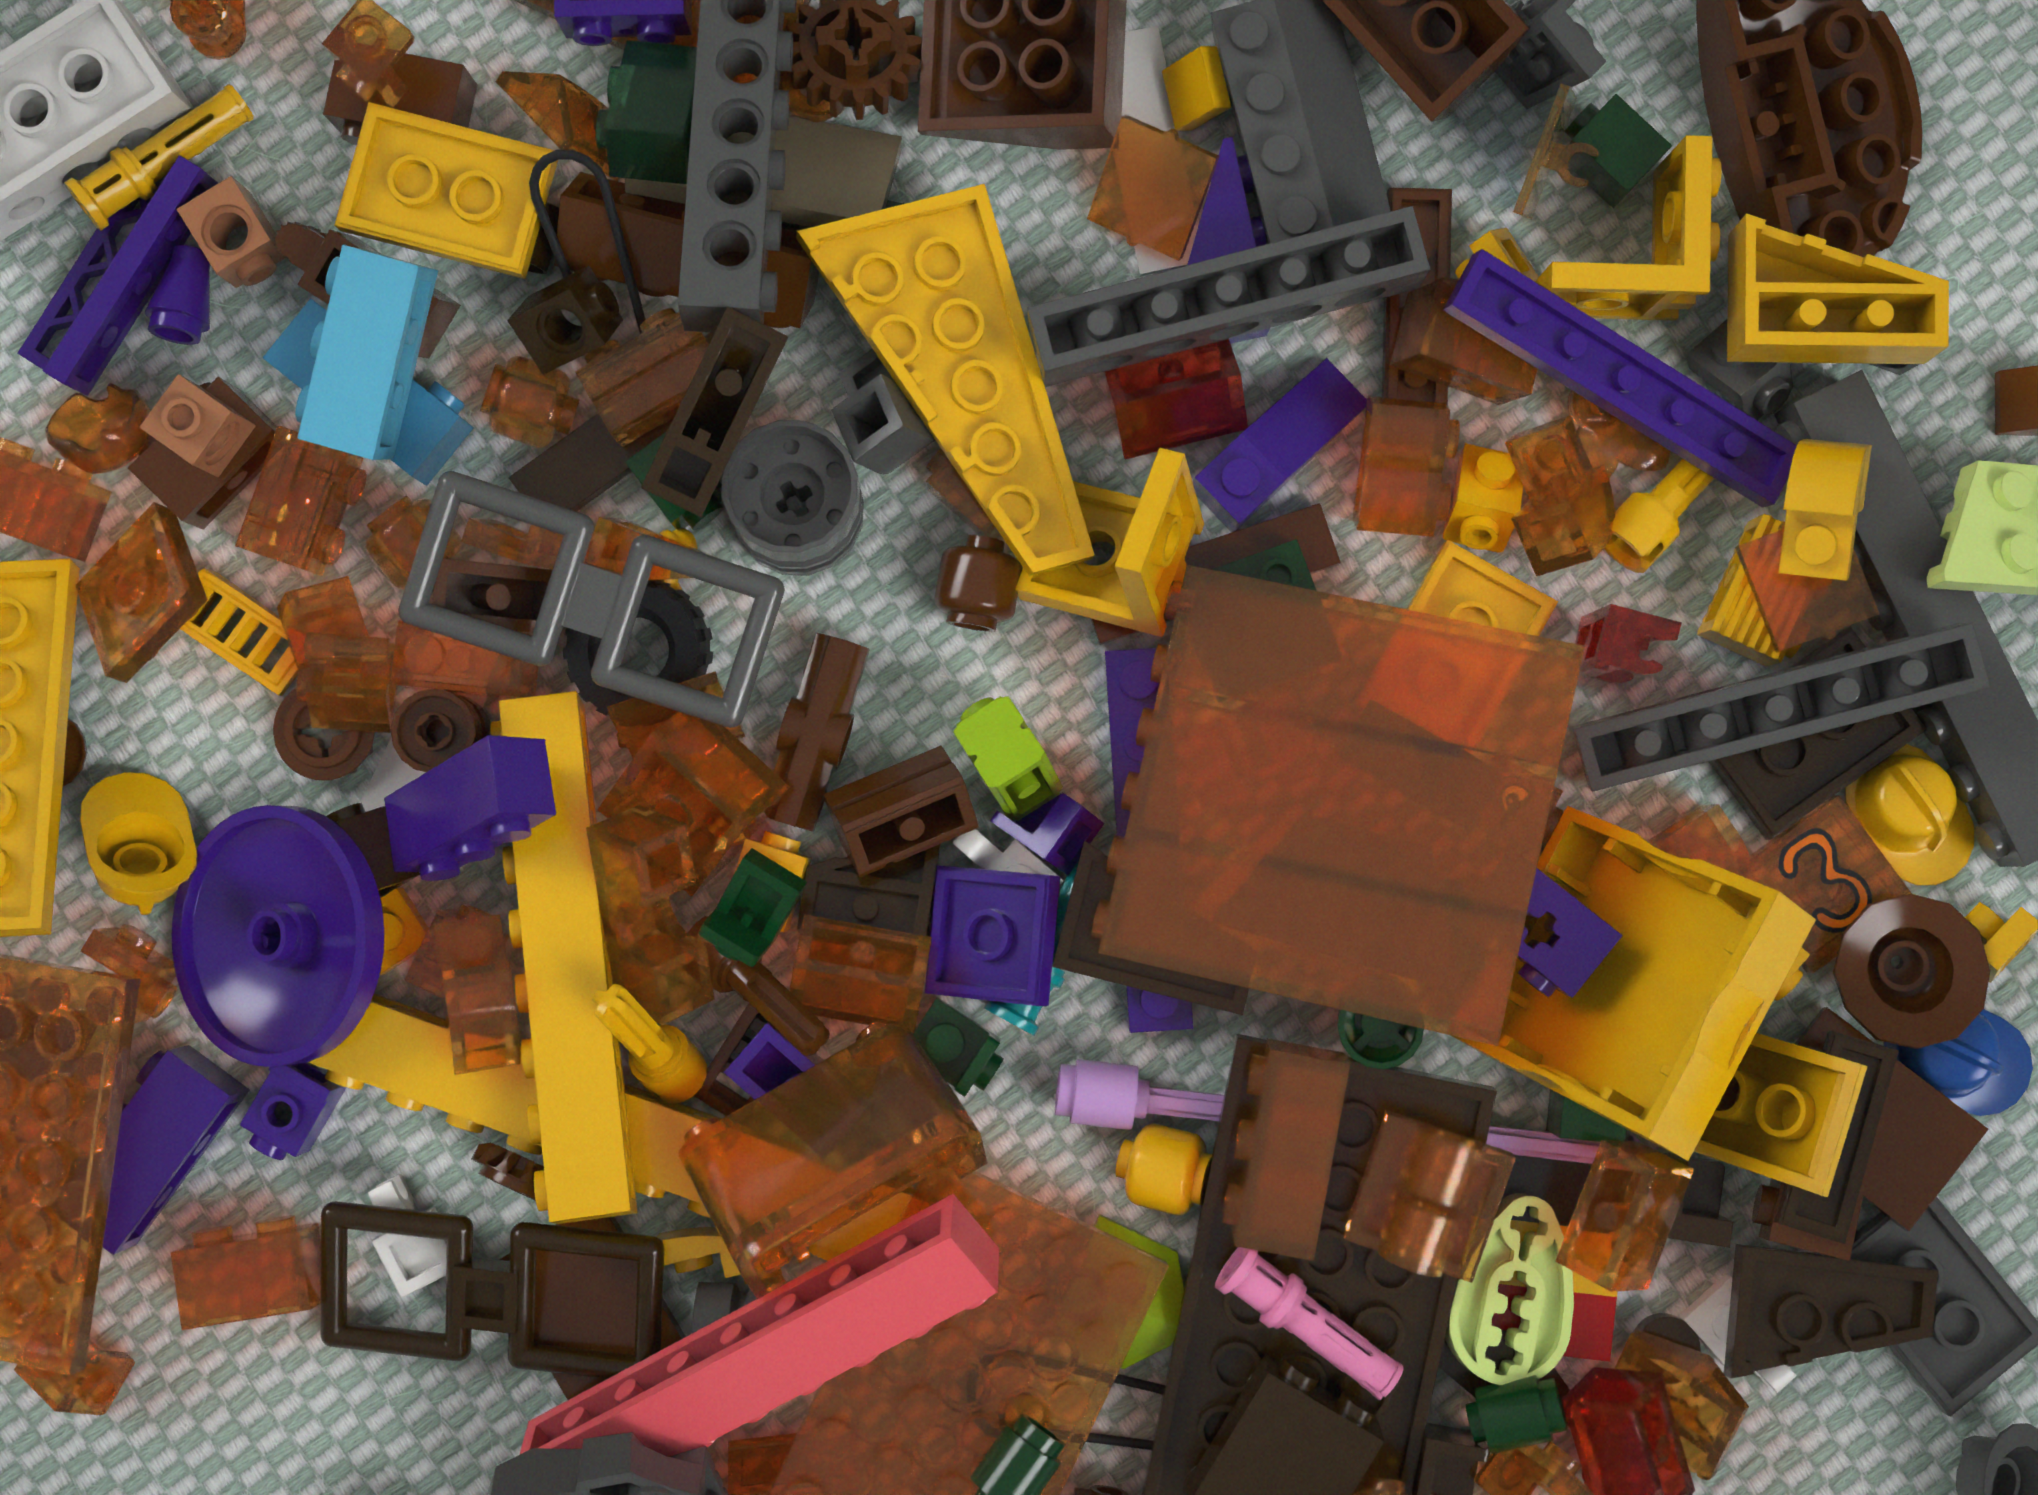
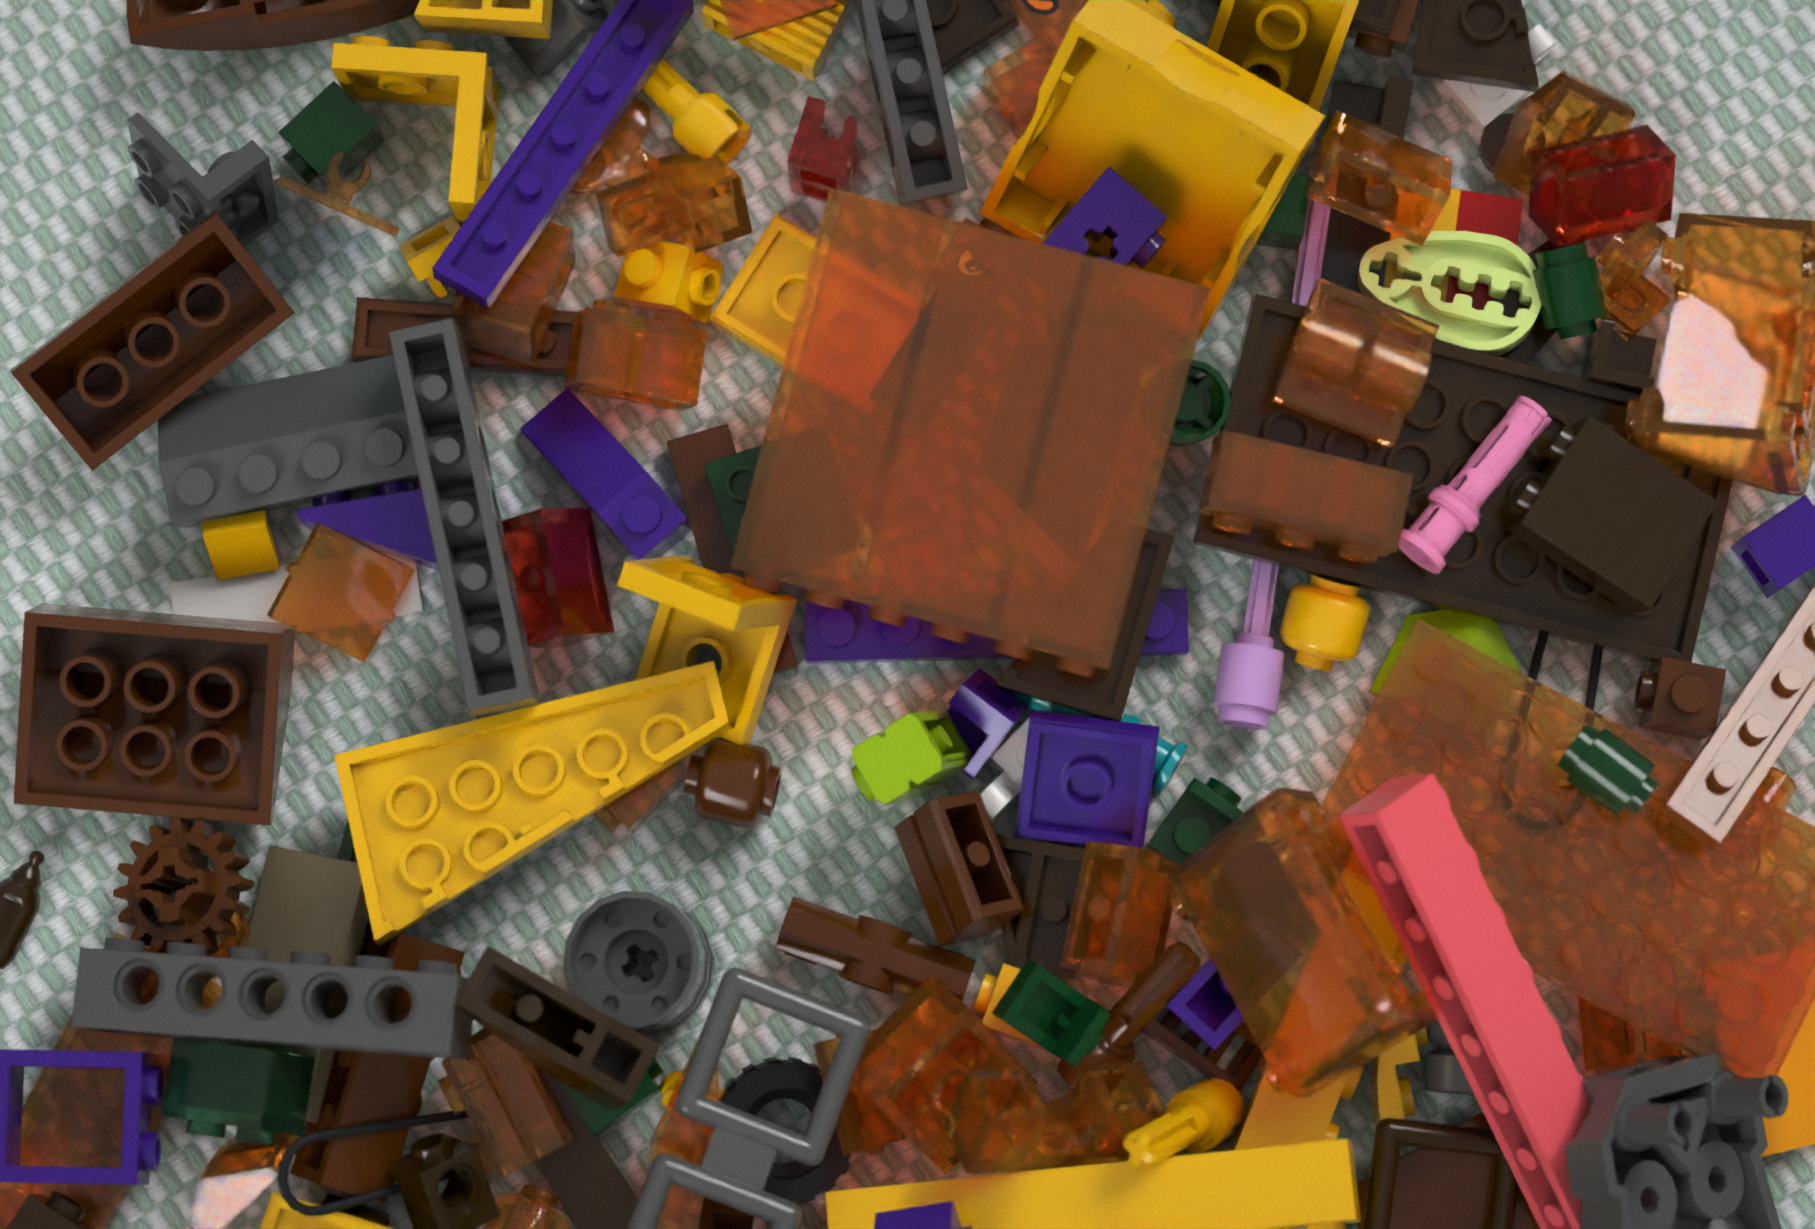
camera: 90 degrees left, 5 degrees down
(877, 417) = (559, 874): dark grey brick -> none

